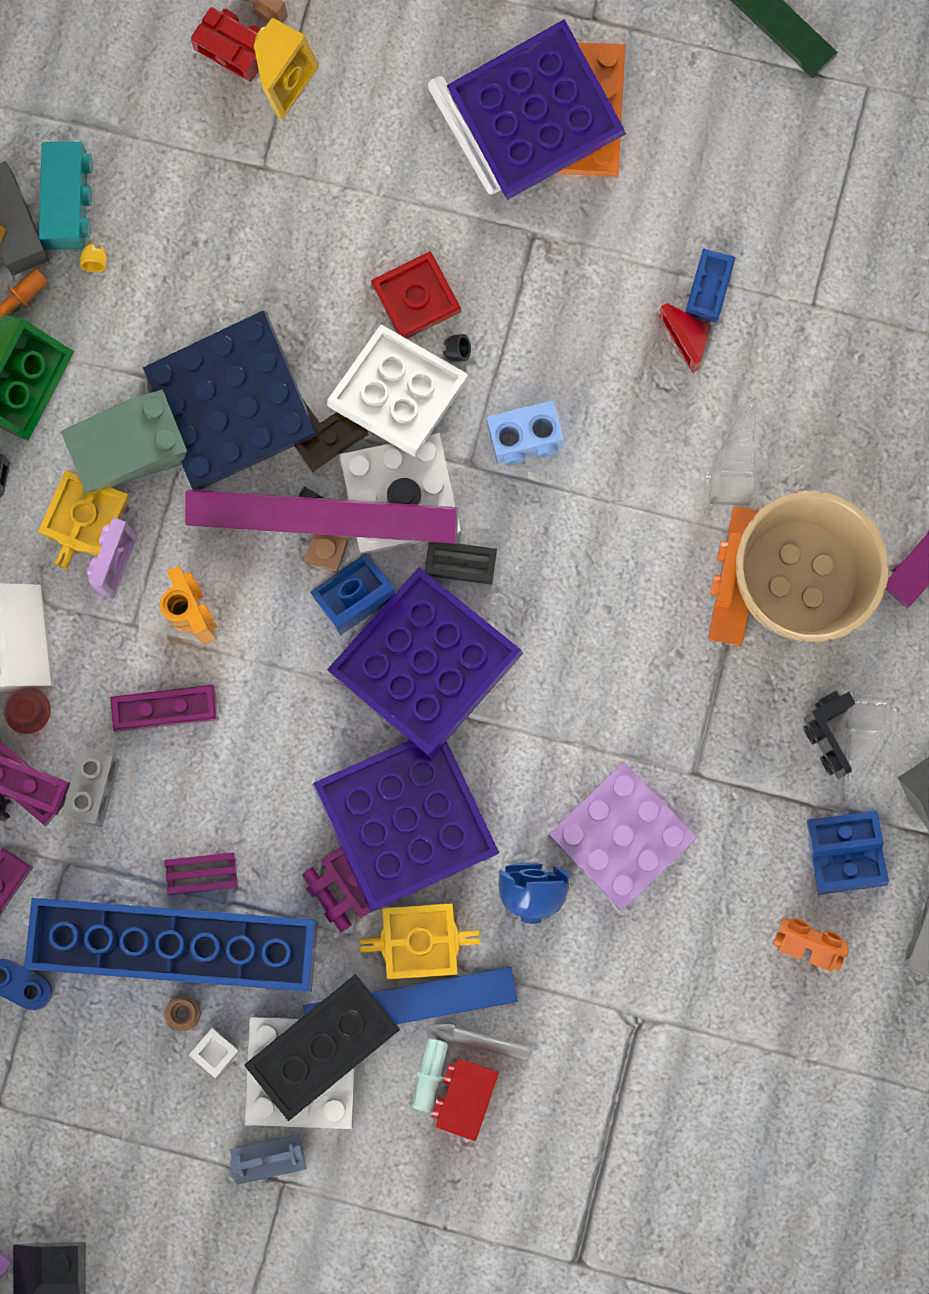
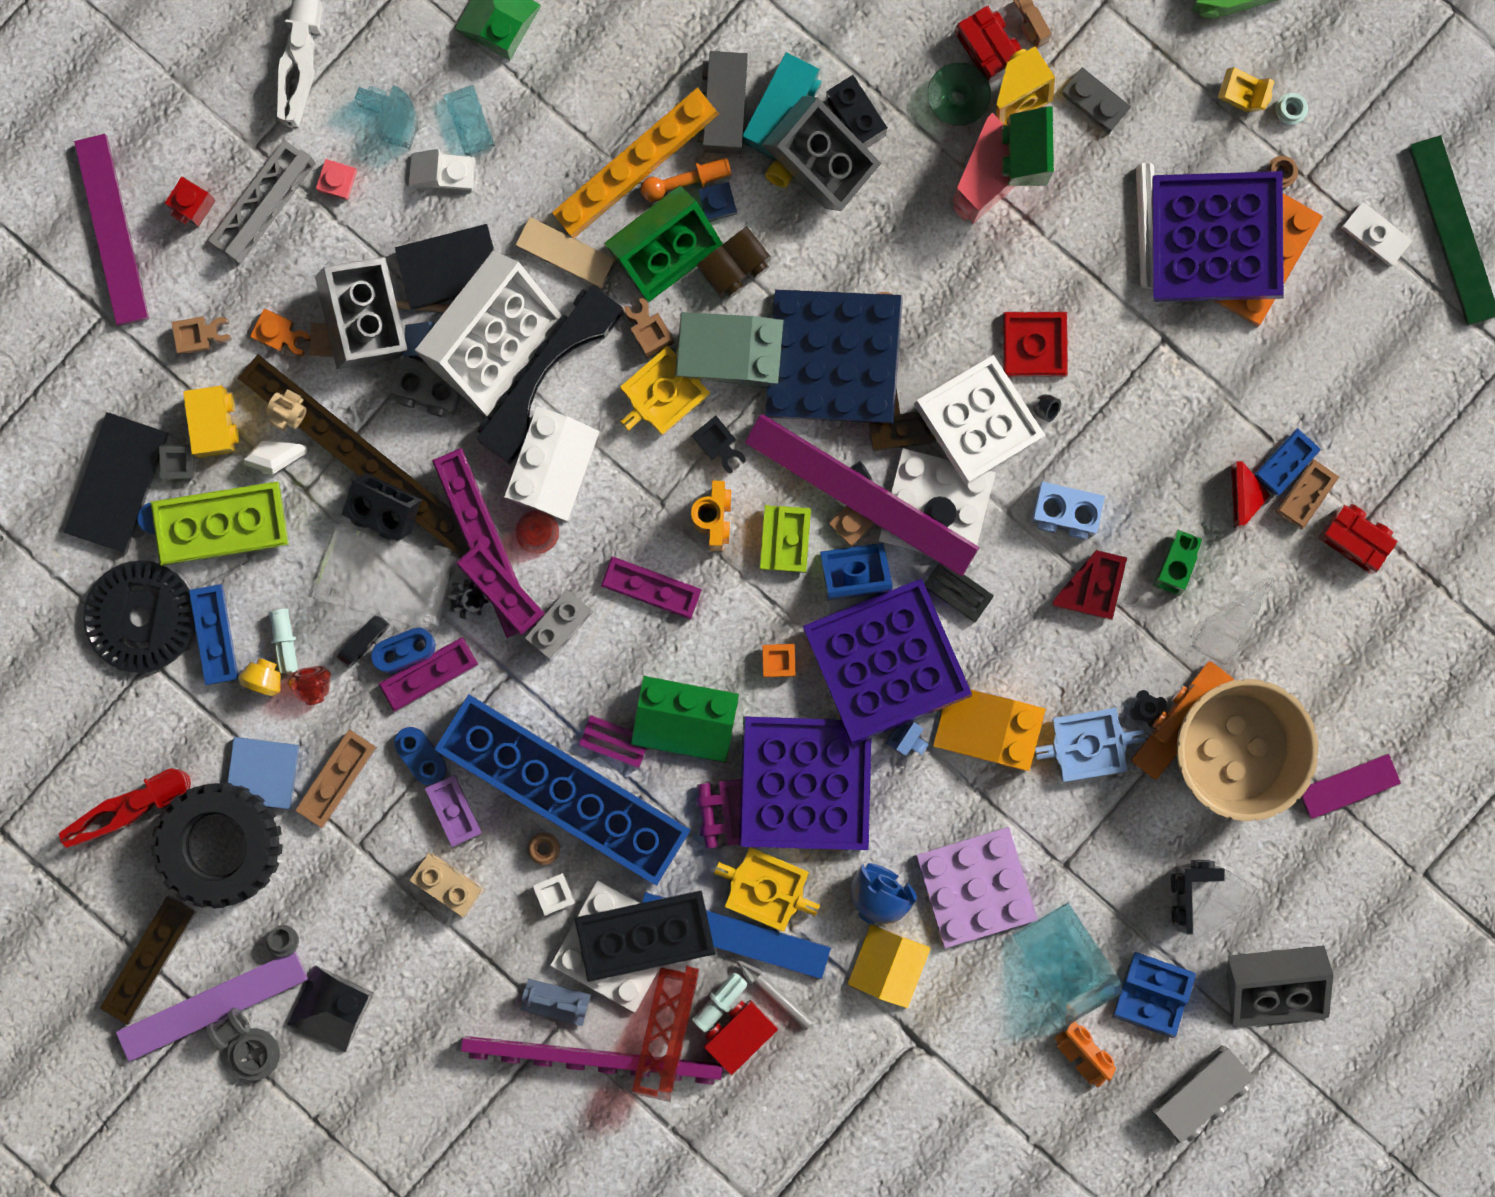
camera: 15 degrees right, 5 degrees up
(40, 466) = (650, 331): none -> medium nougat plate
(48, 313) = (717, 201): none -> dark blue plate
(75, 1021) = (453, 810): none -> medium lavender plate
(91, 362) = (734, 263): none -> dark brown brick
(103, 1096) = (447, 884): none -> tan brick
(109, 567) = (661, 450): lavender plate -> none
(121, 216) = (821, 153): none -> dark grey brick
(137, 167) = (856, 111): none -> black brick
(158, 536) = (716, 441): none -> black plate
(219, 89) = (962, 79): none -> clear green dish
(257, 816) = (684, 719): none -> green slope
(269, 596) = (785, 538): none -> lime plate
(291, 153) = (982, 179): none -> coral slope
(311, 107) = (1029, 147): none -> green slope
(318, 1202) = (577, 1058): none -> magenta plate
(321, 715) = (779, 660): none -> orange plate
(358, 45) = (1095, 100): none -> dark grey plate
(400, 1125) = (677, 1029): none -> clear red fence
(482, 726) = (907, 738): none -> medium blue tile
(559, 677) = (991, 730): none -> light orange slope
(571, 16) = (1286, 163): none -> medium nougat plate
(577, 955) = (888, 966): none -> yellow slope
(588, 492) = (1094, 586): none -> dark red wing
(656, 430) = (1178, 563): none -> green leg
(660, 644) = (1089, 744): none -> light blue plate
(684, 37) = (1376, 234): none -> white plate
(691, 574) = (1144, 700): none -> black plate
(744, 305) = (1307, 494): none -> medium nougat plate
(749, 864) = (1068, 964): none -> clear light blue slope
(814, 321) = (1358, 538): none -> red brick

